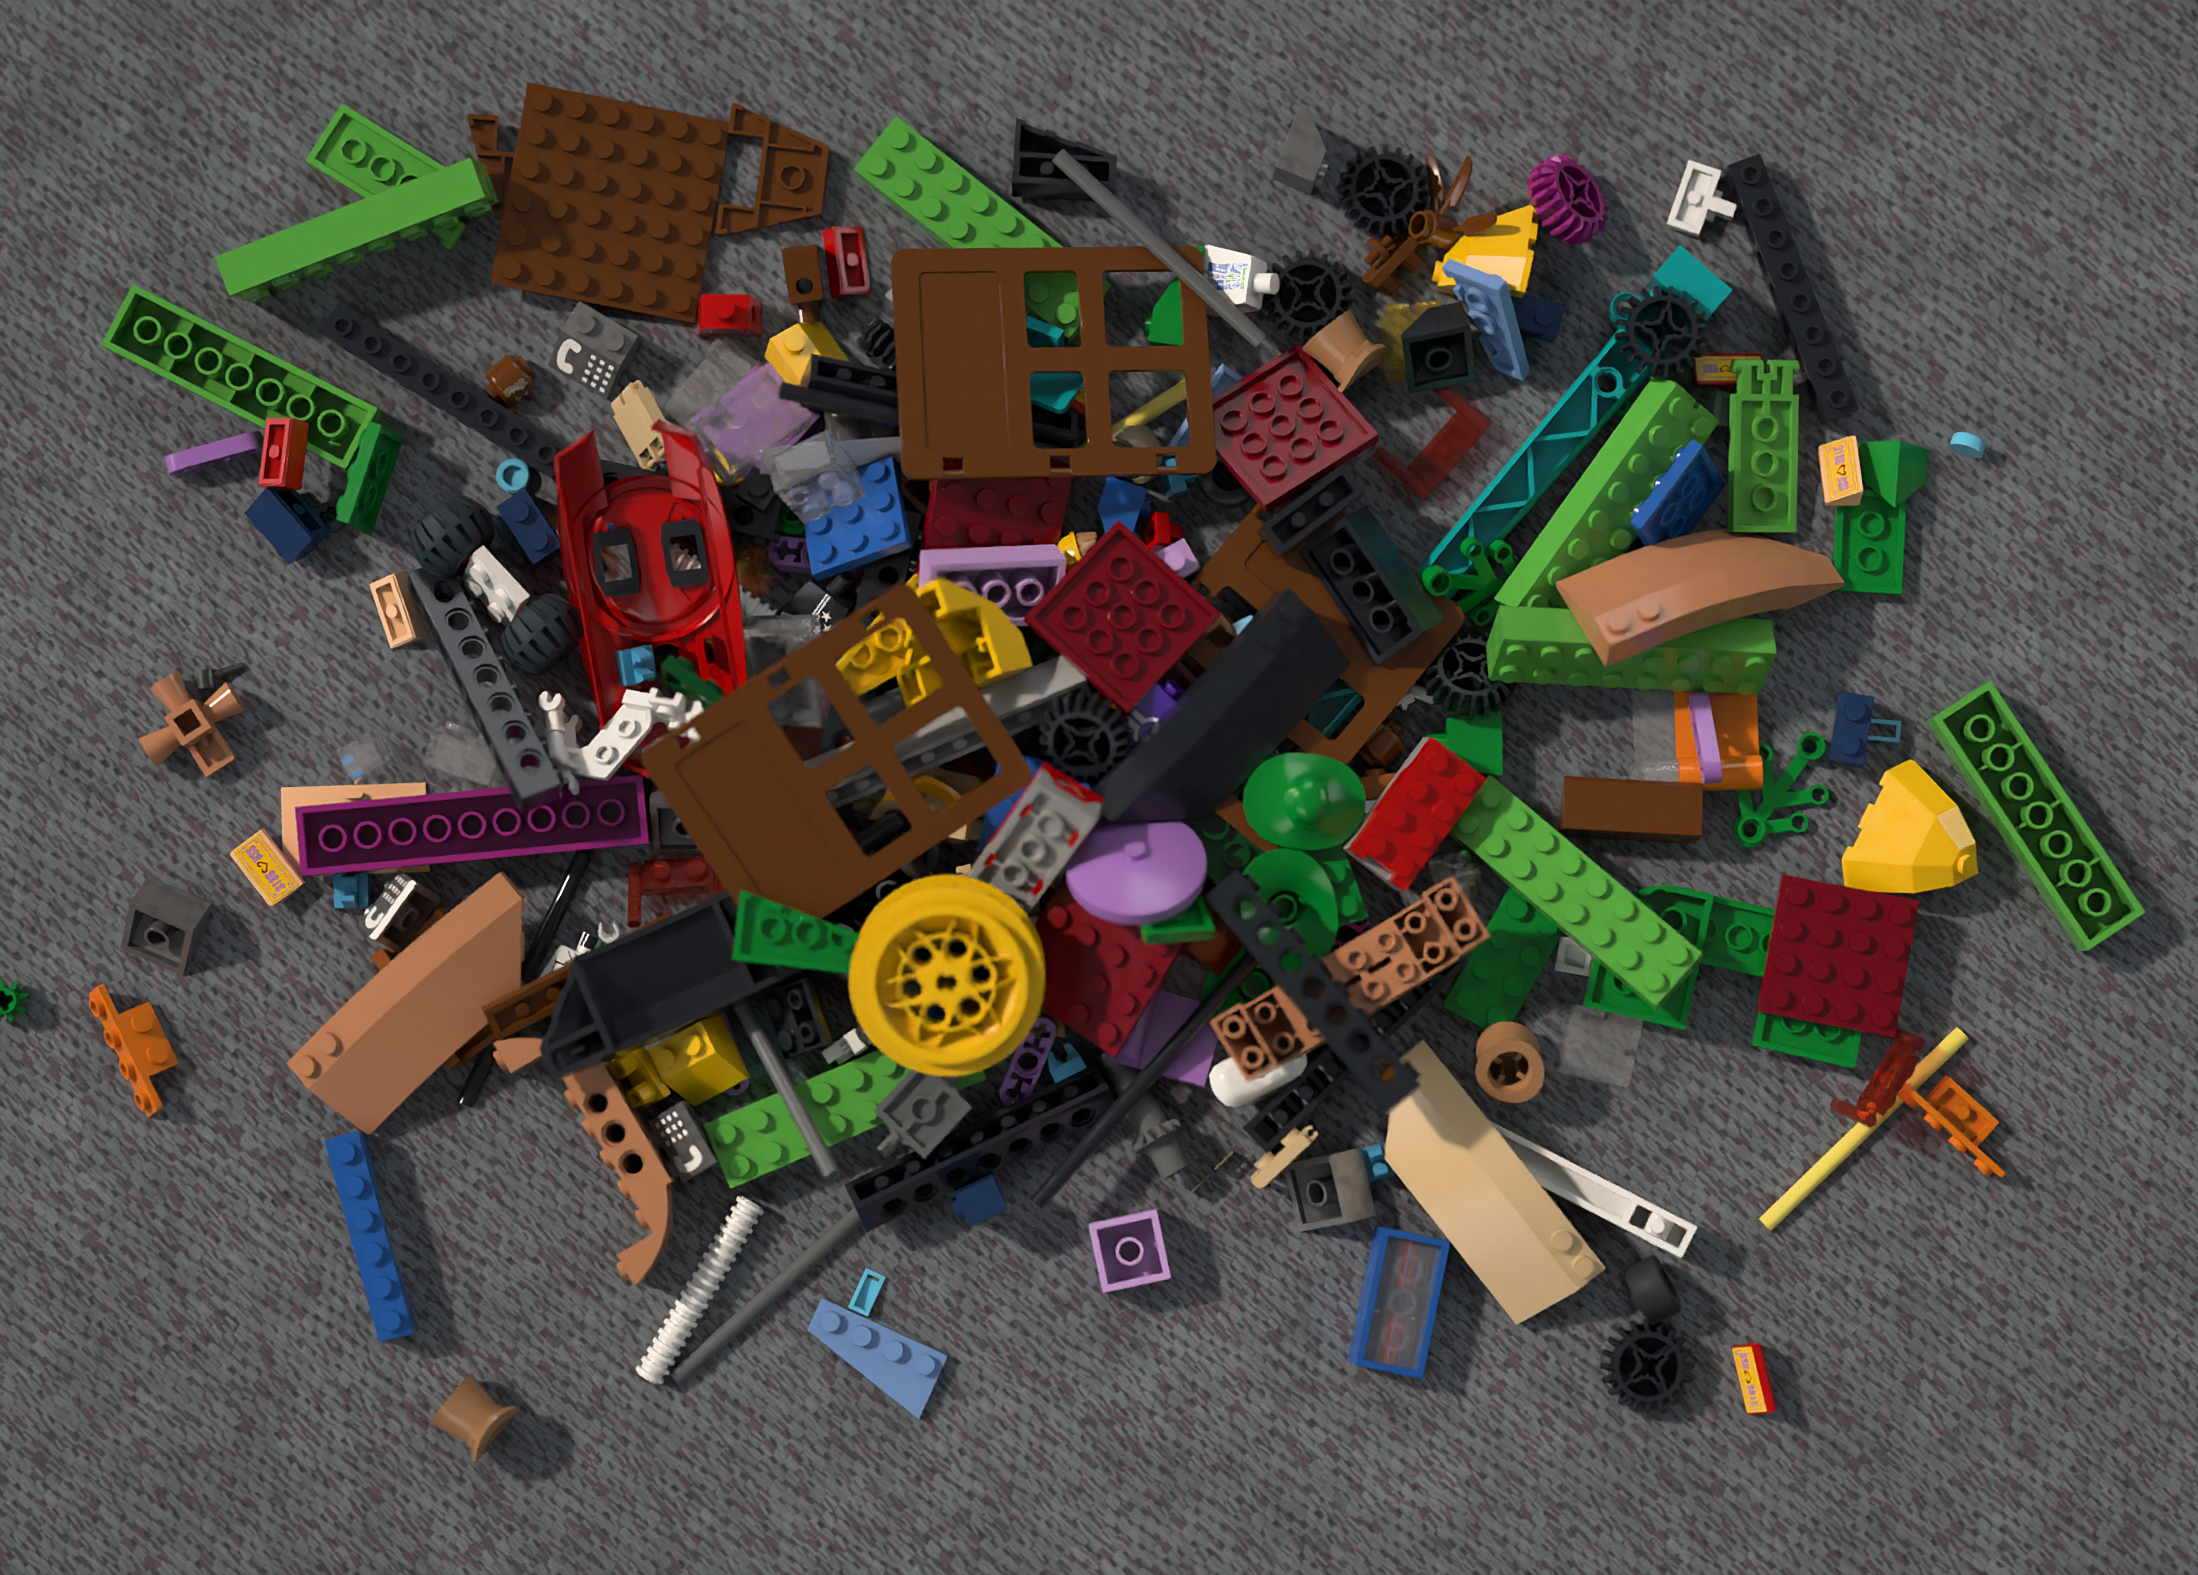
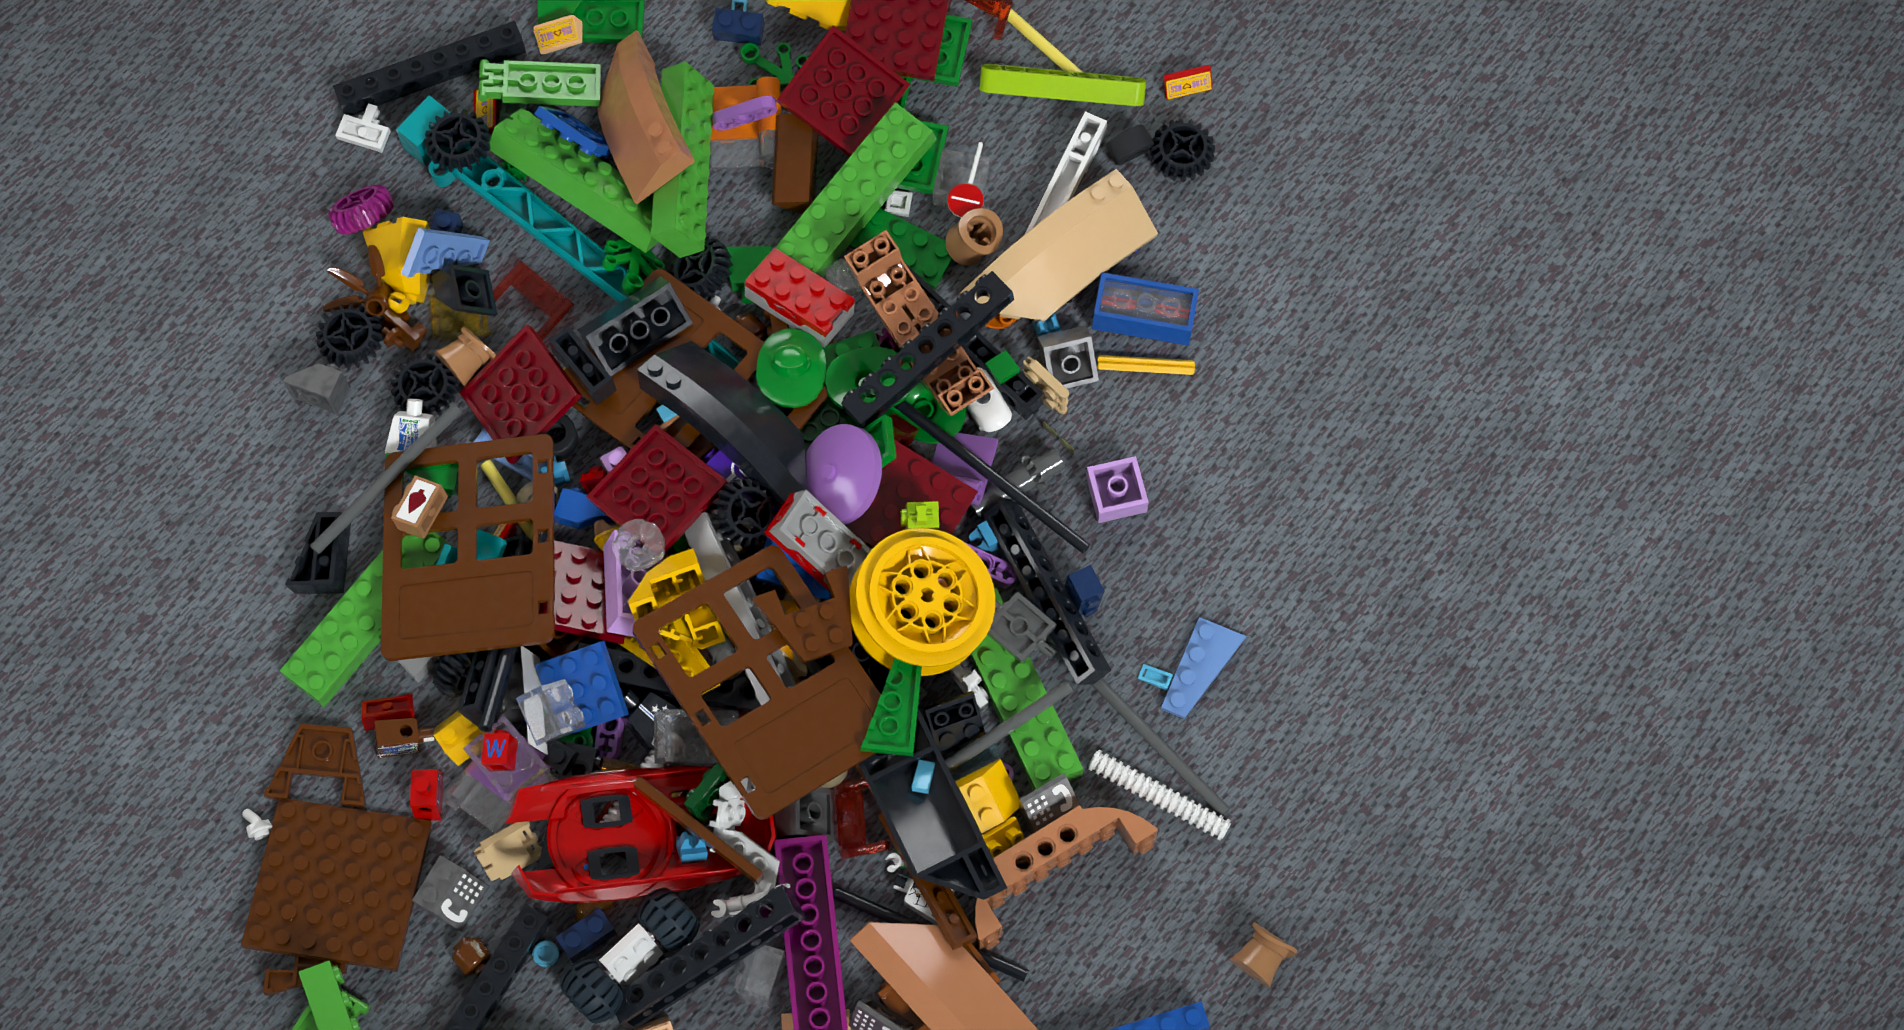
camera: 90 degrees left, 15 degrees down
(645, 674) = (698, 830): none -> reddish brown tile
(689, 99) = (258, 828): none -> white plate
(720, 973) = (923, 776): none -> medium azure piece
(754, 410) = (499, 751): none -> red brick
(909, 834) = (817, 628): none -> reddish brown wing
(1027, 610) = (646, 556): none -> clear plate
(1066, 976) = (920, 515): none -> lime hinge
(1109, 293) = (419, 507): none -> medium nougat brick
(1304, 1096) = (1002, 367): none -> green tile
(1320, 1299) = (1144, 364): none -> yellow axle
(1434, 259) = (396, 307): none -> yellow hinge
(1565, 1052) = (966, 195): none -> red piece
(1729, 879) = (842, 91): none -> dark red plate
(1750, 1196) = (1062, 85): none -> lime beam

